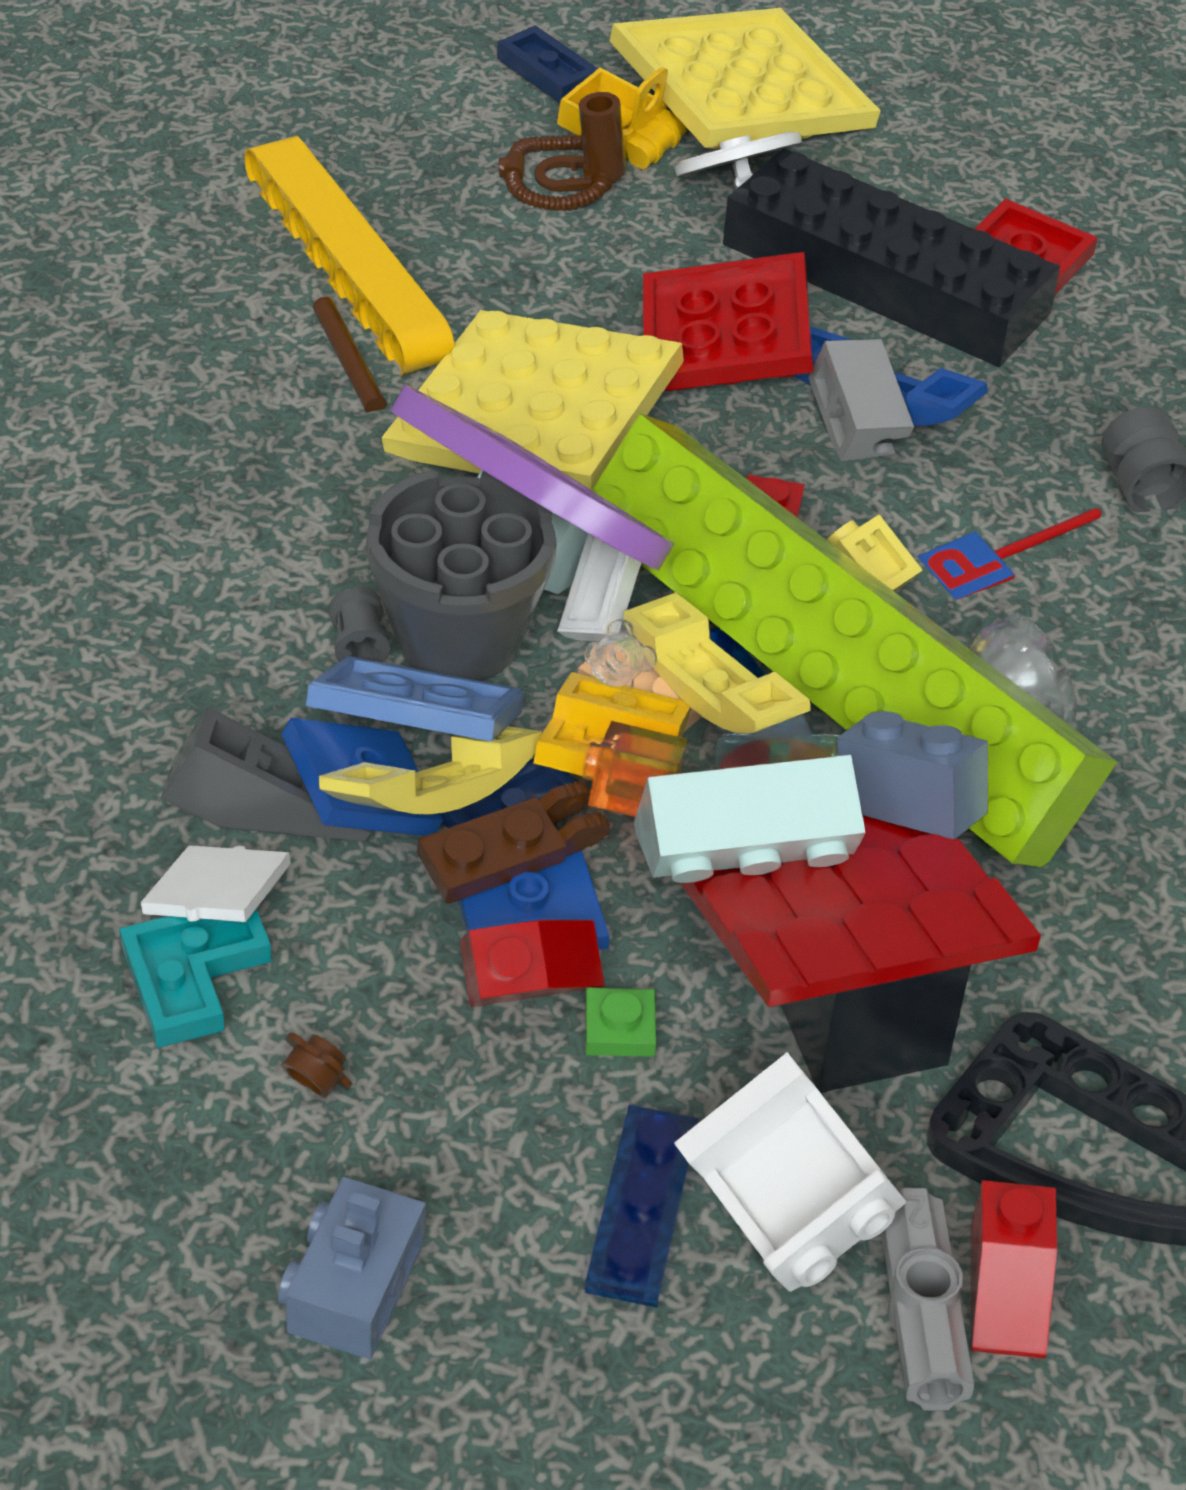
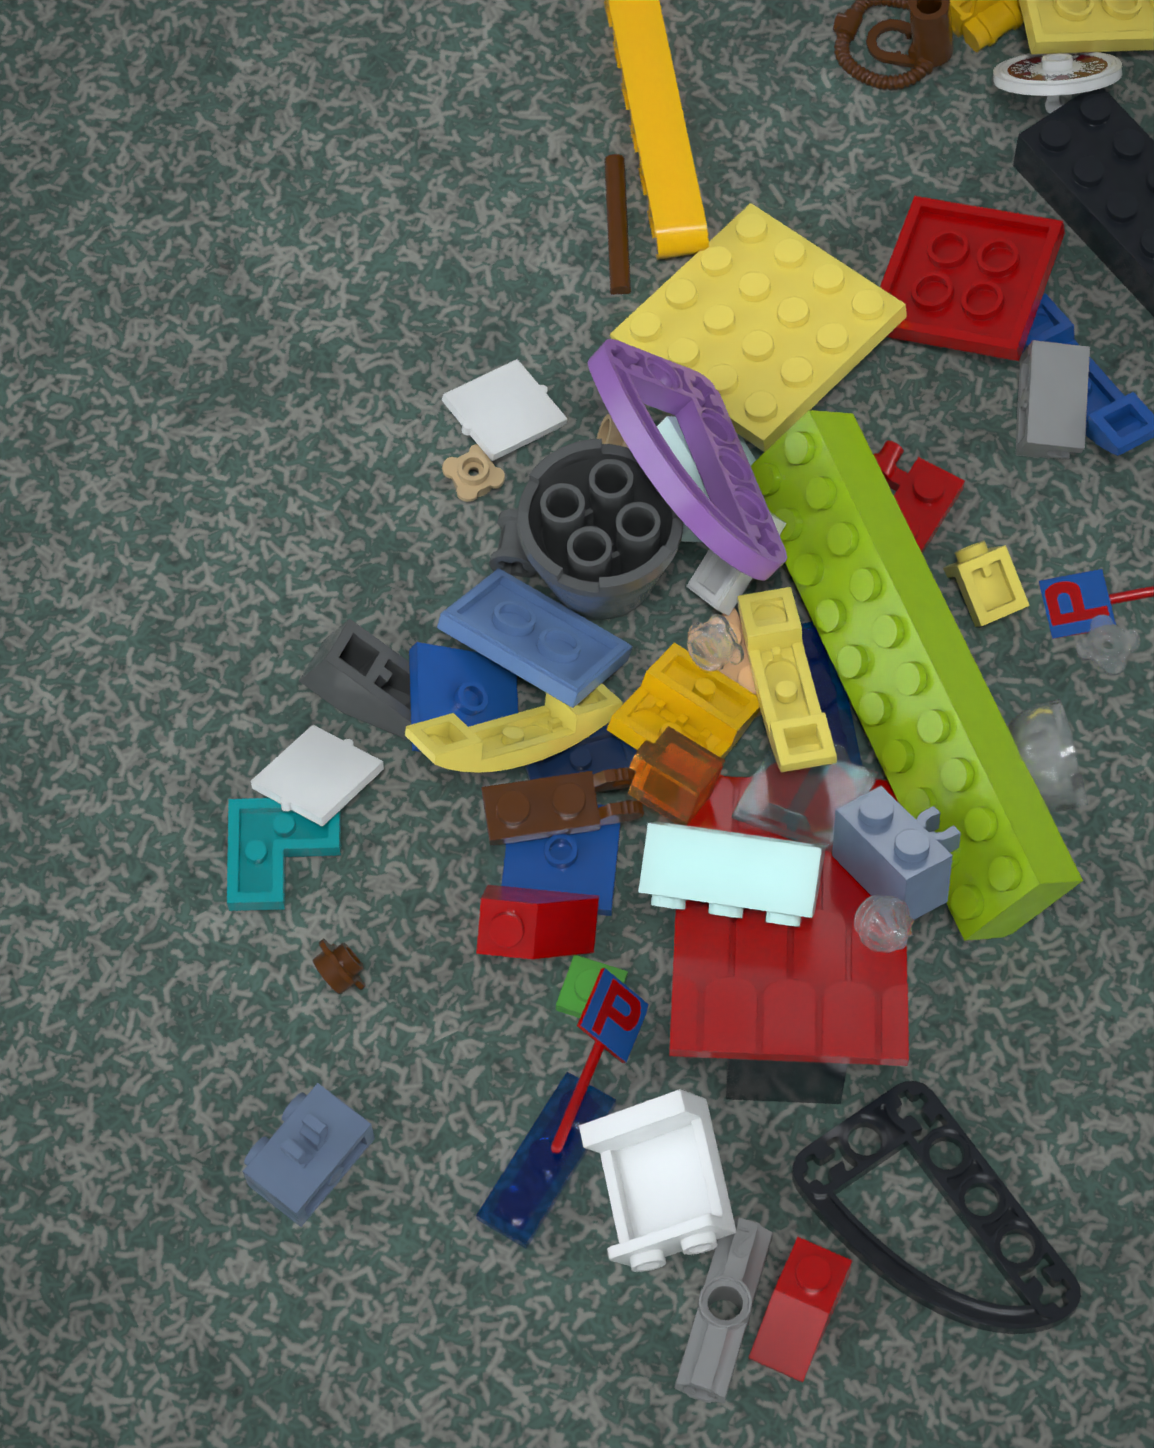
camera: 25 degrees right, 20 degrees up
(283, 581) = (470, 486): none -> tan plate
(294, 521) = (504, 410): none -> white piece
(667, 1042) = (612, 1020): none -> piece
(942, 828) = (883, 923): none -> clear plate
(1016, 589) = (1112, 659): none -> clear plate

